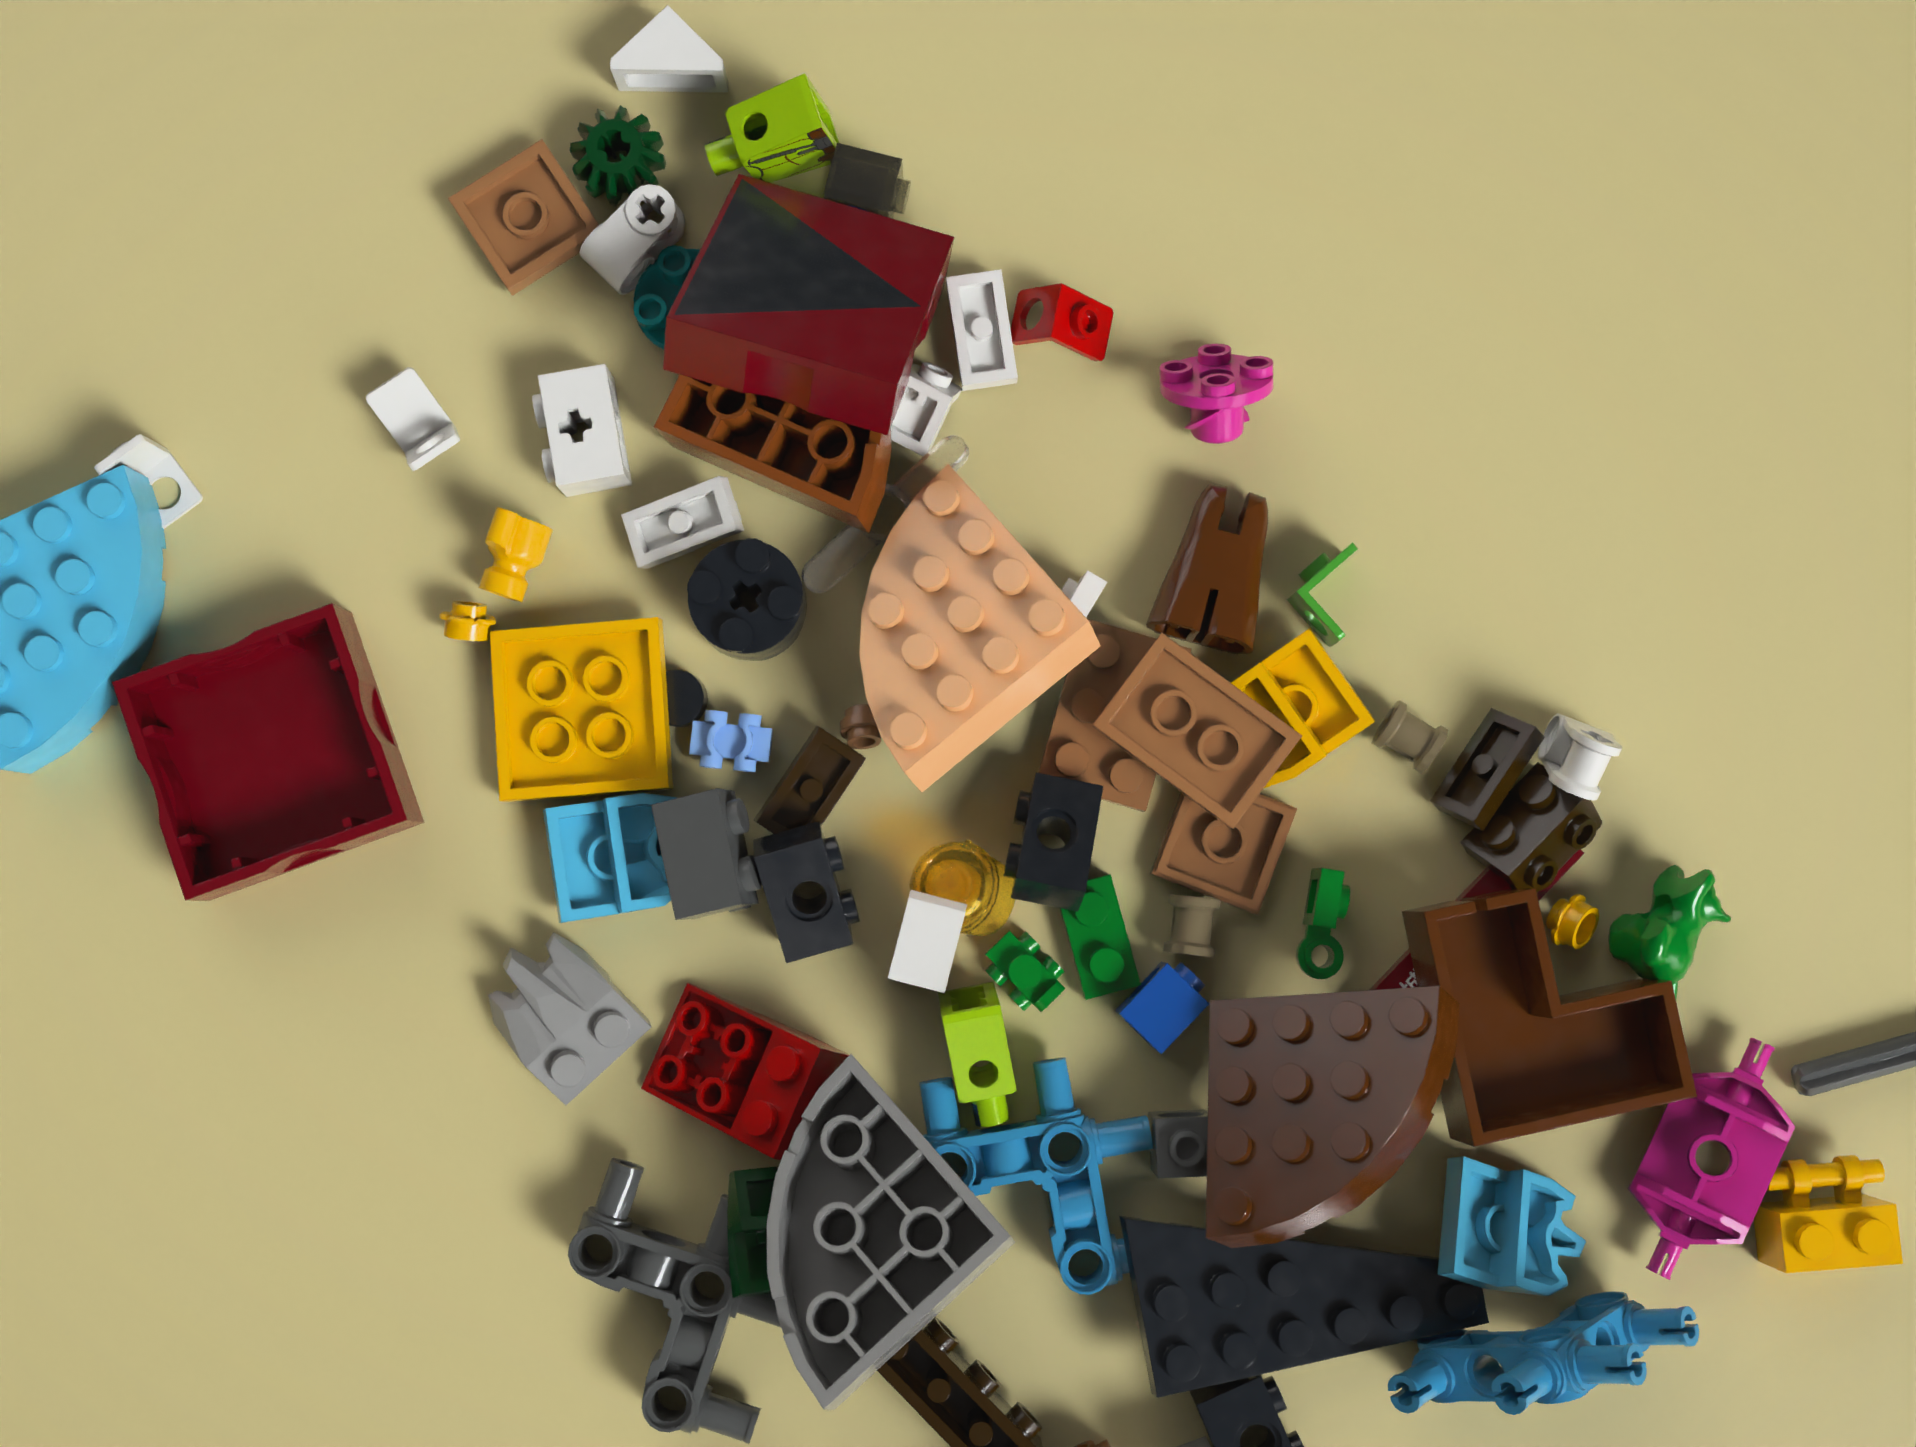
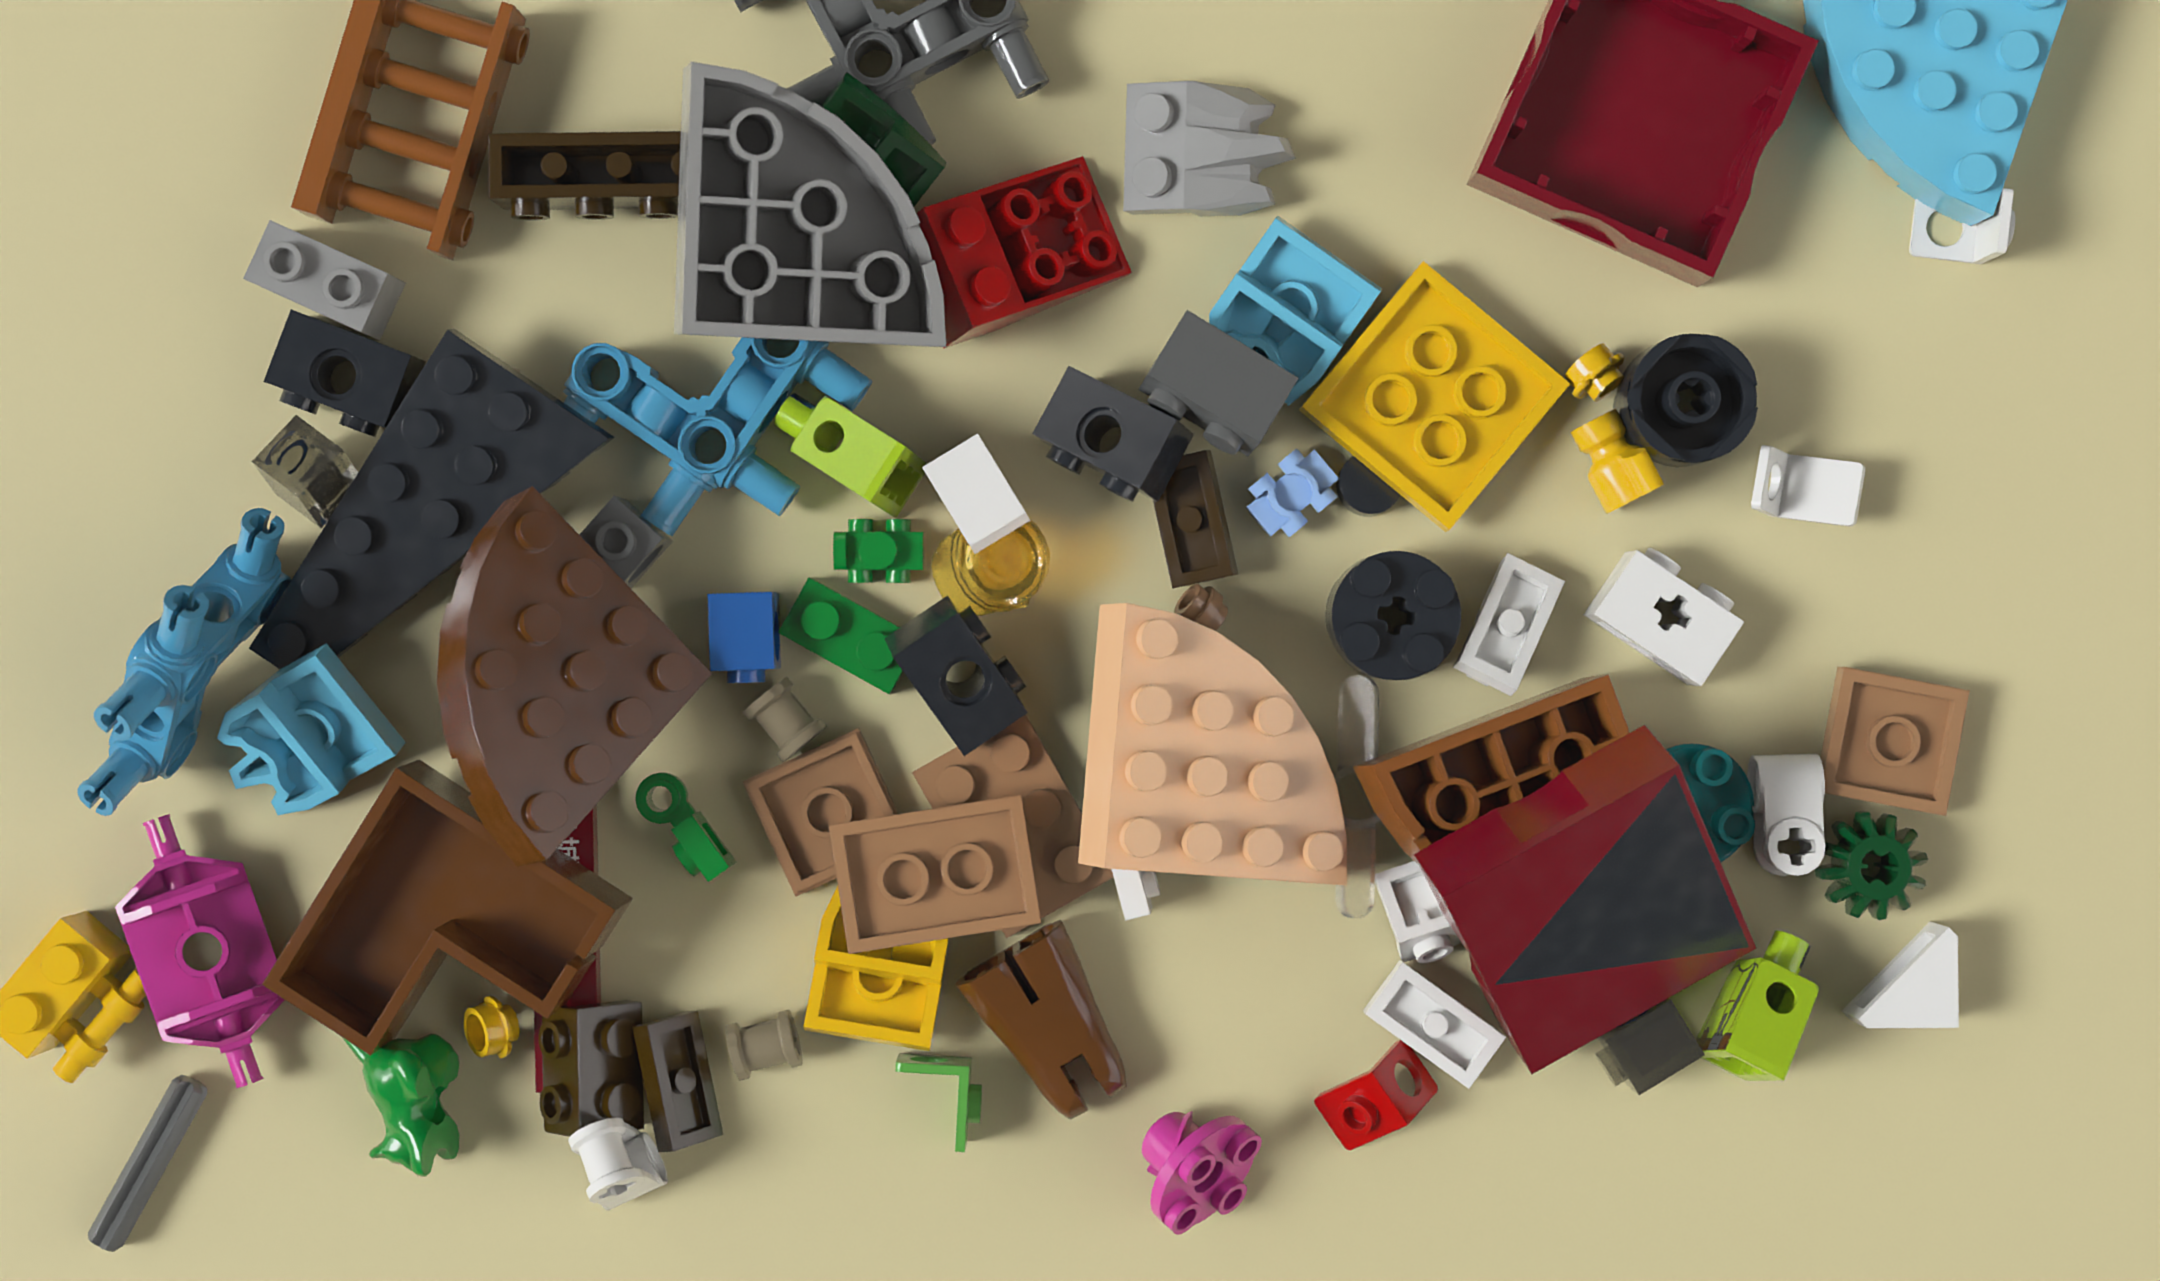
camera: 140 degrees right, 5 degrees up
(410, 522) = (1722, 400): none -> black brick
(1338, 1400) = (306, 470): none -> clear smoke brick

